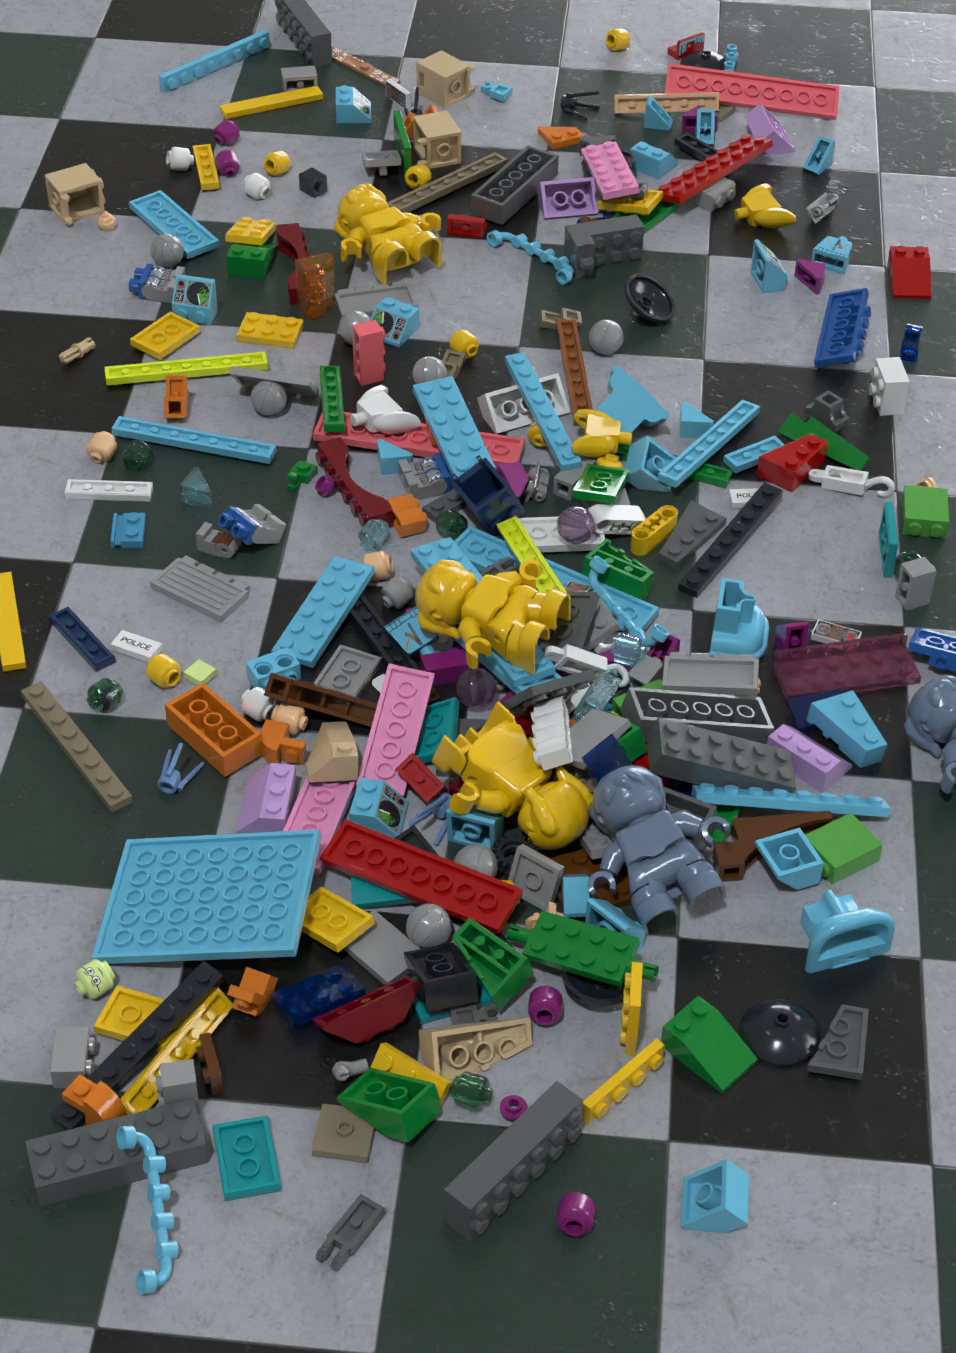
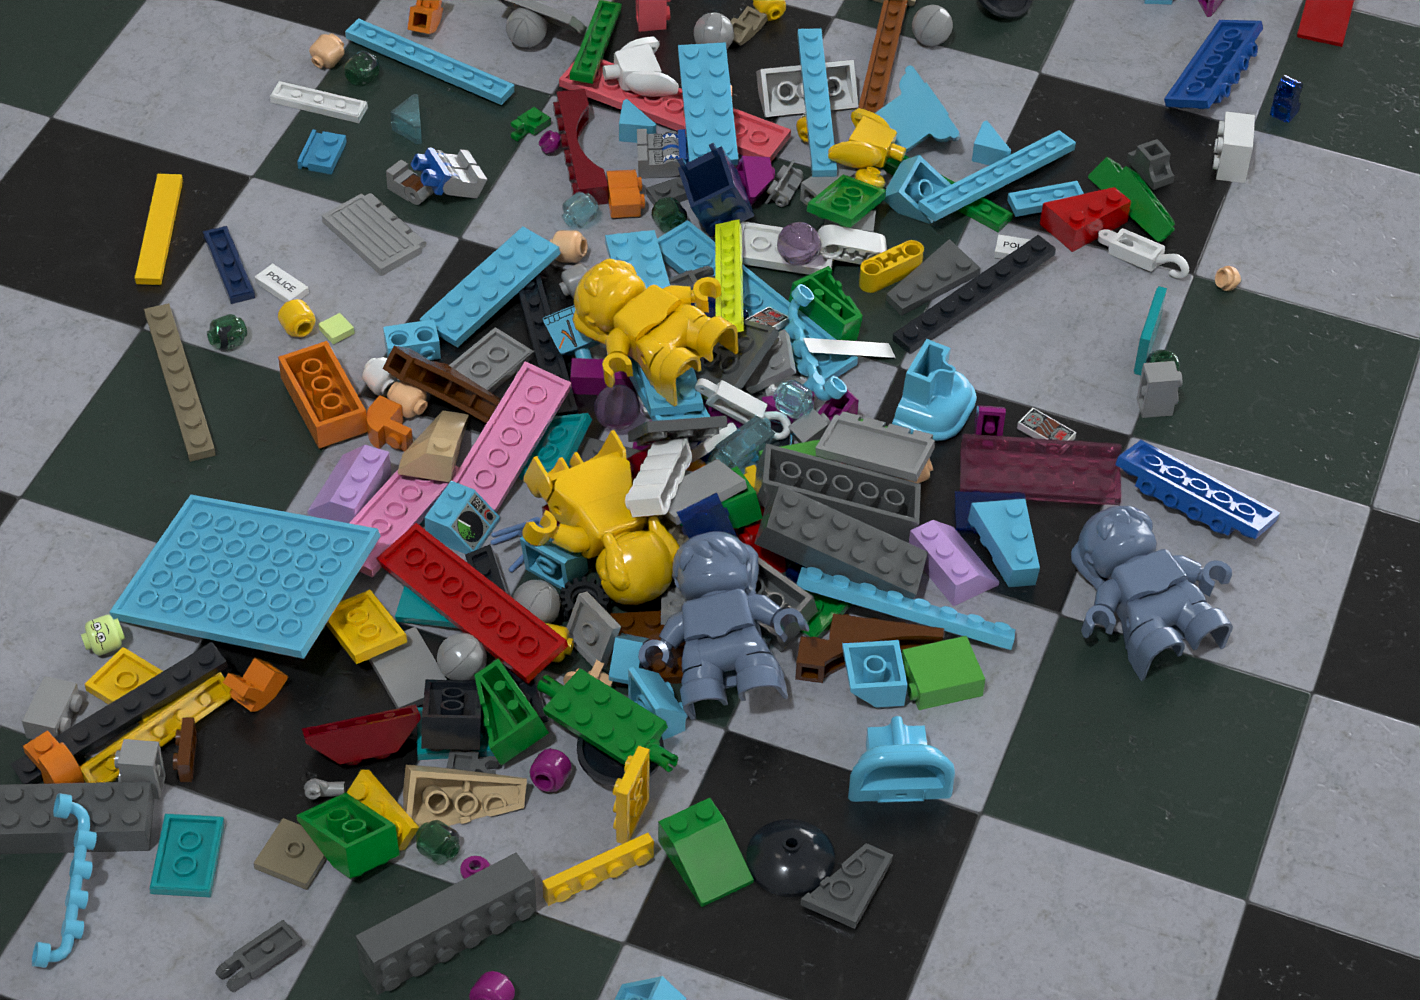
camera: 15 degrees right, 5 degrees up
(170, 777) = (261, 438): medium blue plant -> none
(317, 995) = (321, 704): clear blue plate -> none
(421, 778) = (517, 496): red panel -> none
(649, 601) = (849, 347): none -> white sticker
(925, 511) = (1212, 305): bright green brick -> none

